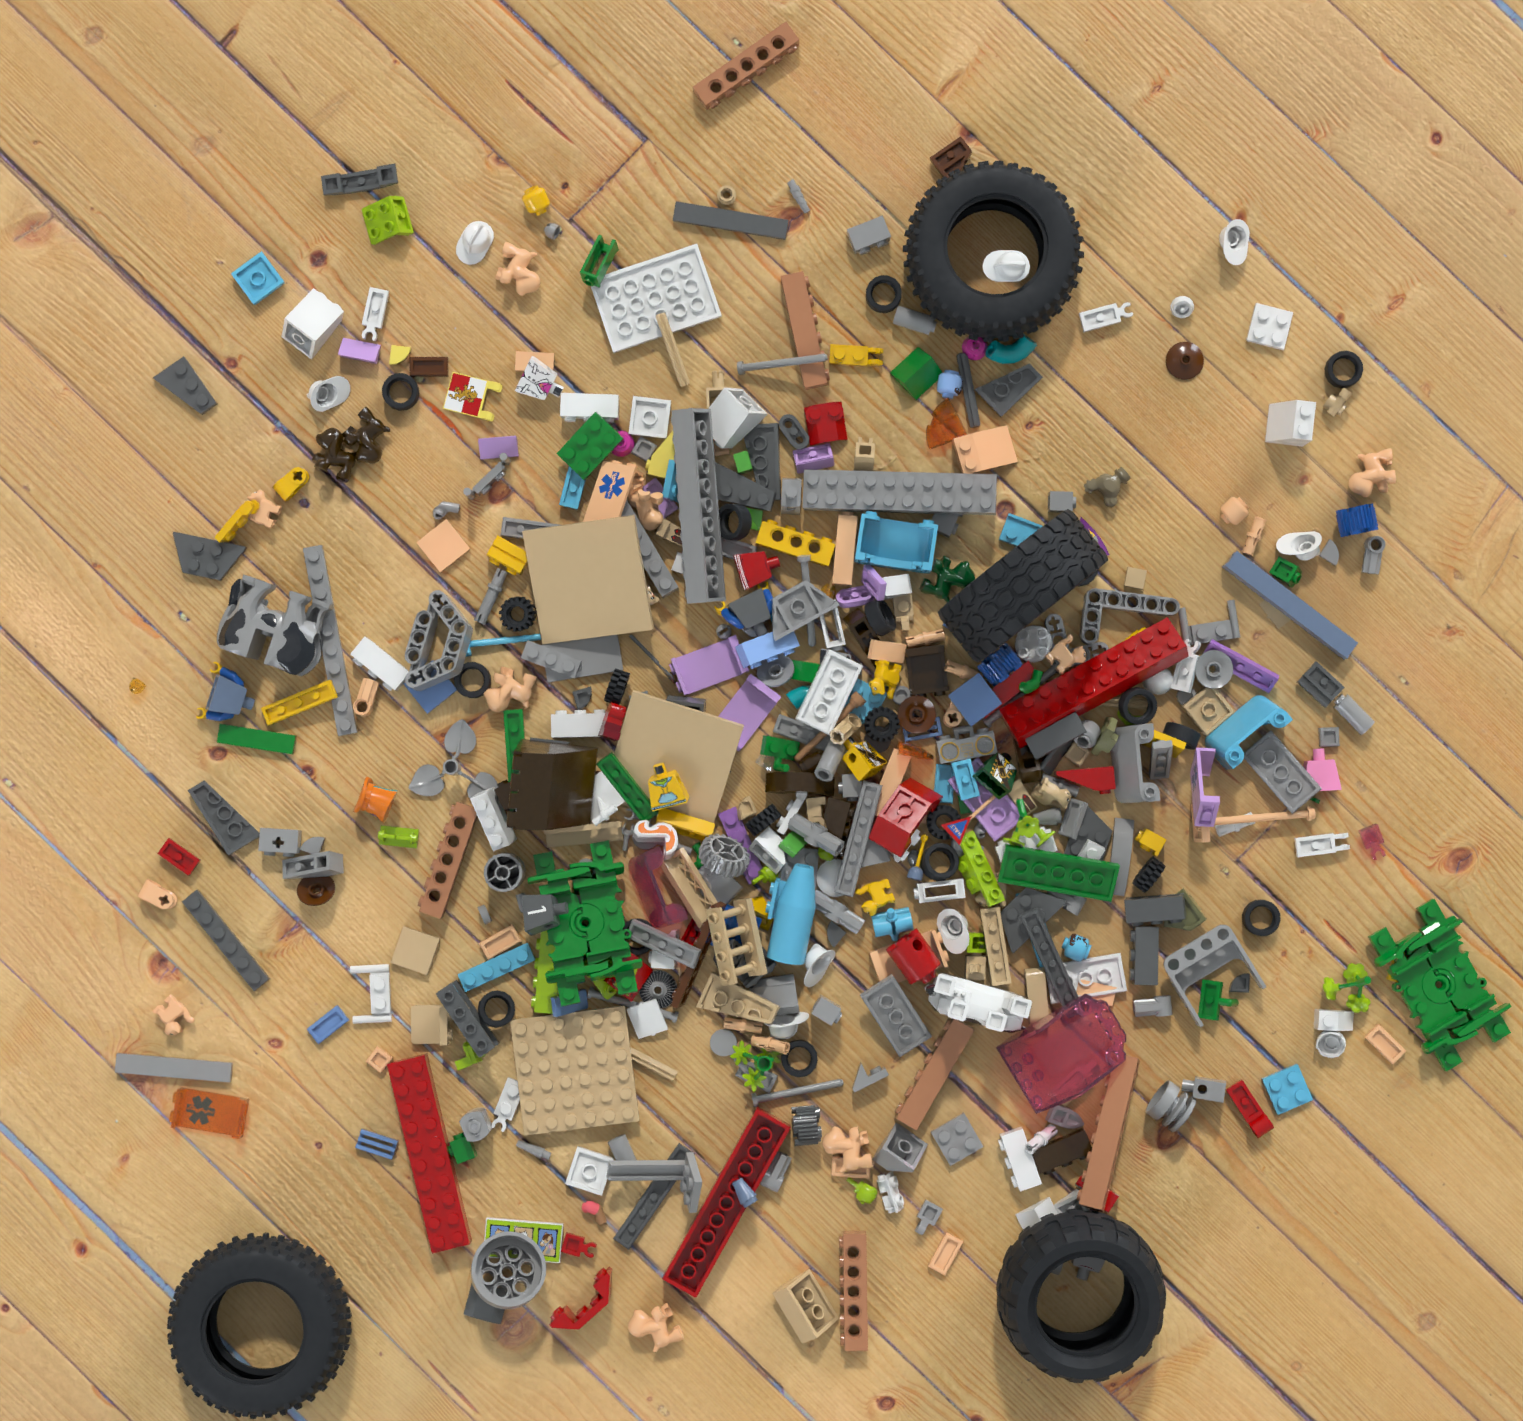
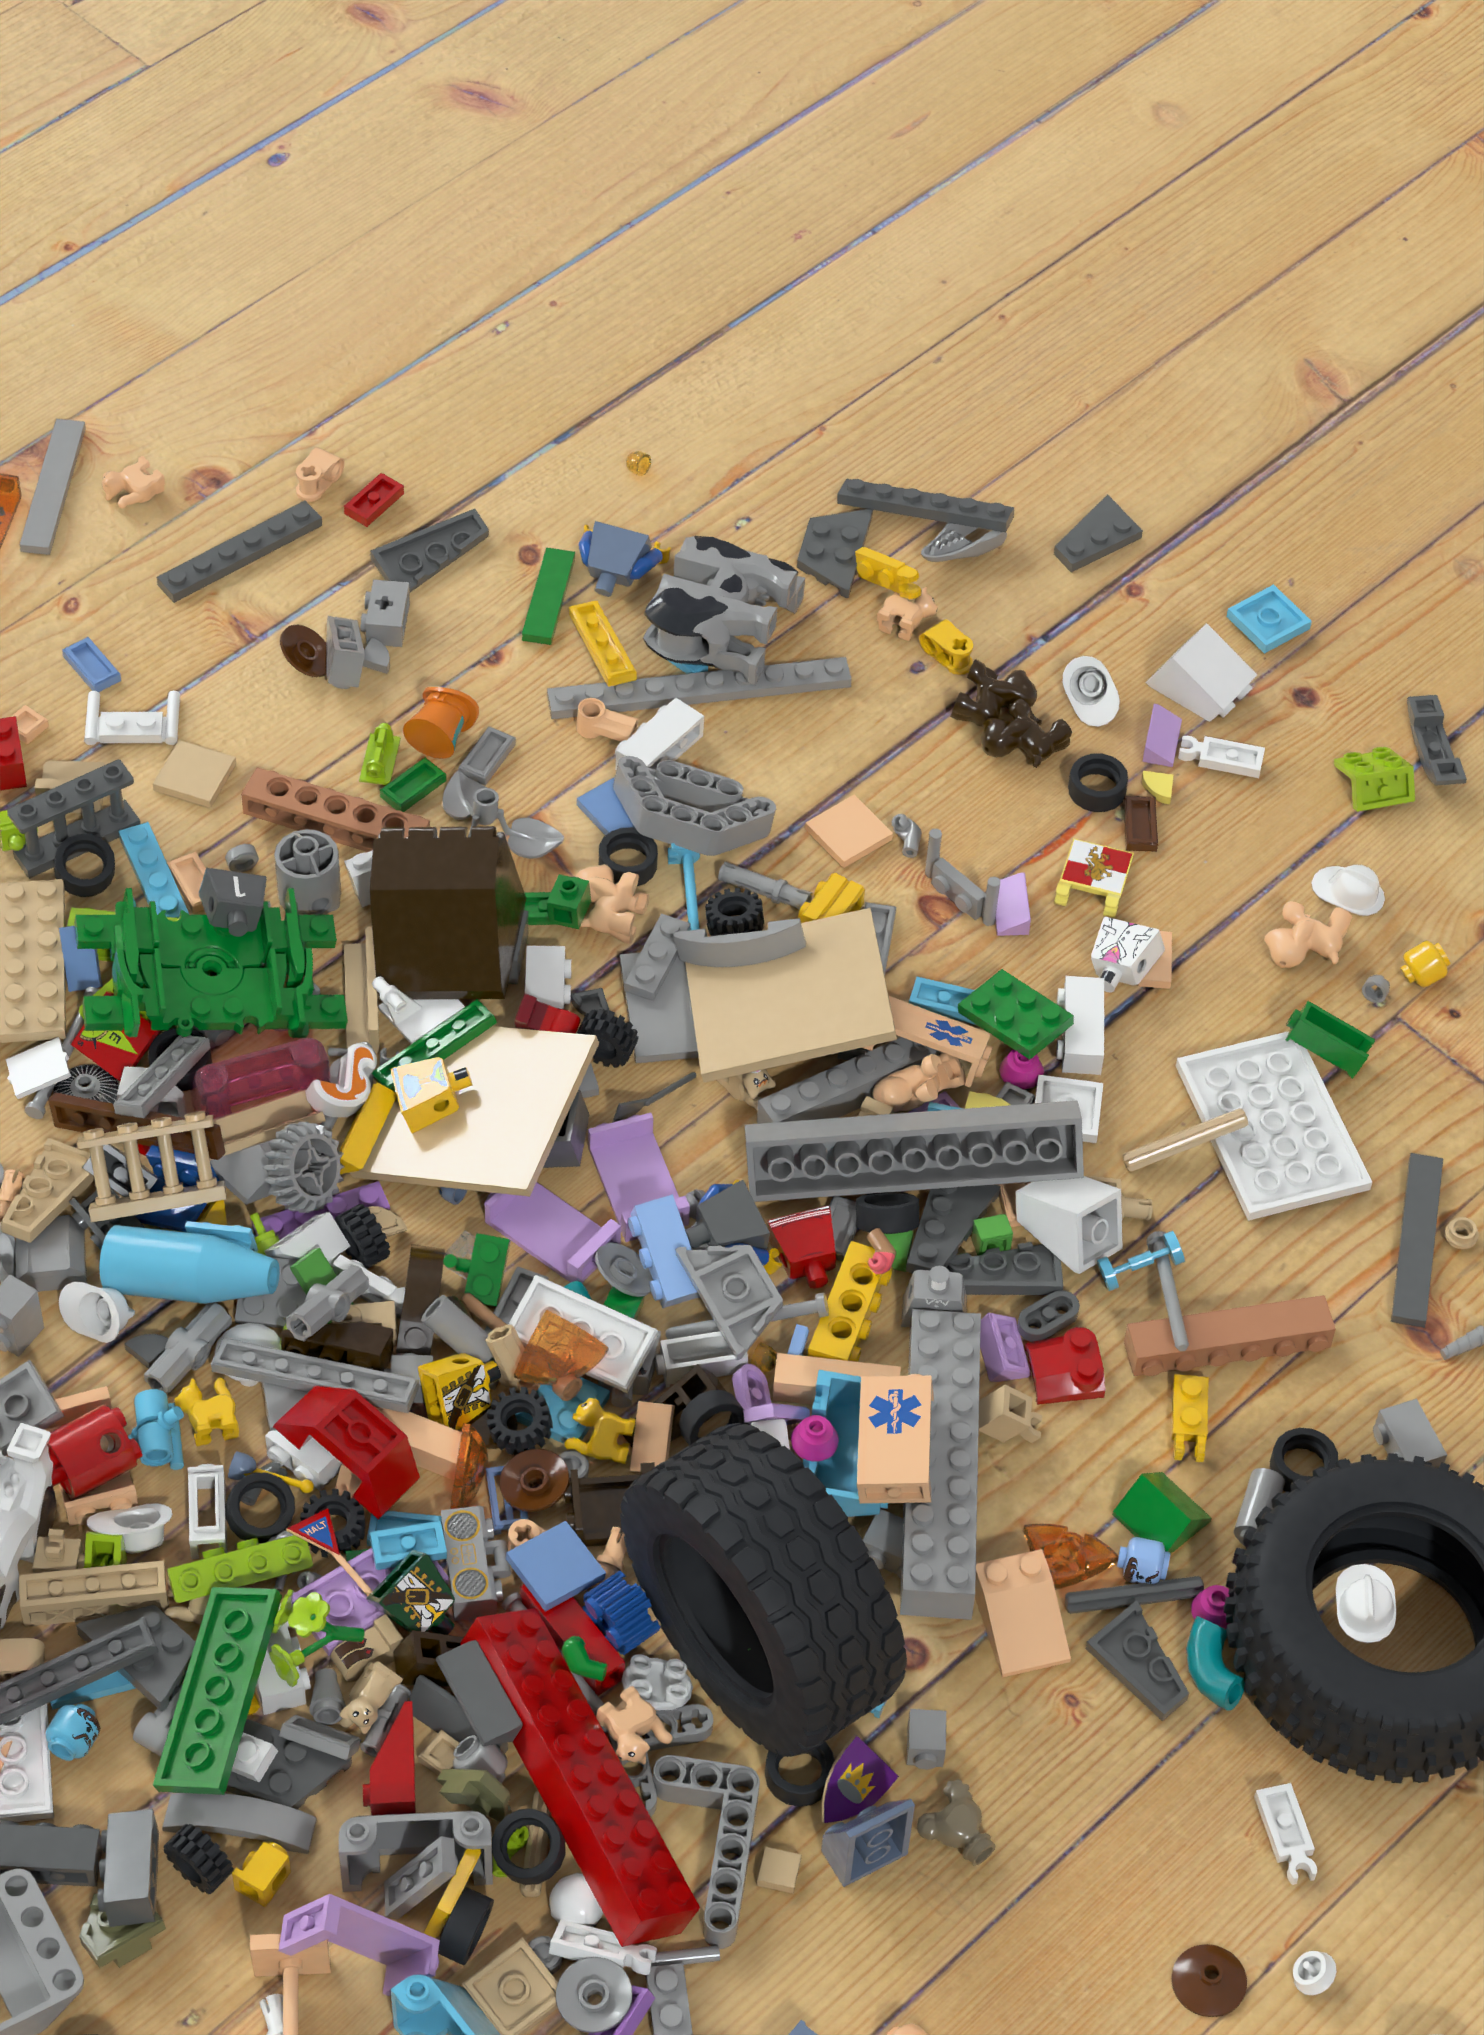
camera: 85 degrees right, 35 degrees down
(171, 496) = (925, 505): none -> dark grey plate
(203, 479) = (952, 543): none -> light grey animal
(391, 770) = (487, 755): none -> light grey tile
(418, 815) = (413, 785): none -> green tile
(517, 713) = (568, 901): none -> green brick
(550, 585) = (740, 949): none -> light grey slope
(759, 379) = (1139, 1261): none -> medium azure wheel
(766, 523) = (884, 1252): none -> arm
(821, 572) = (798, 1340): none -> light blue tile
(846, 703) = (557, 1351): none -> clear orange brick
(895, 566) = (814, 1439): none -> dark pink cone
(904, 516) = (894, 1439): none -> light nougat panel
(1124, 532) = (869, 1840): none -> sand blue slope

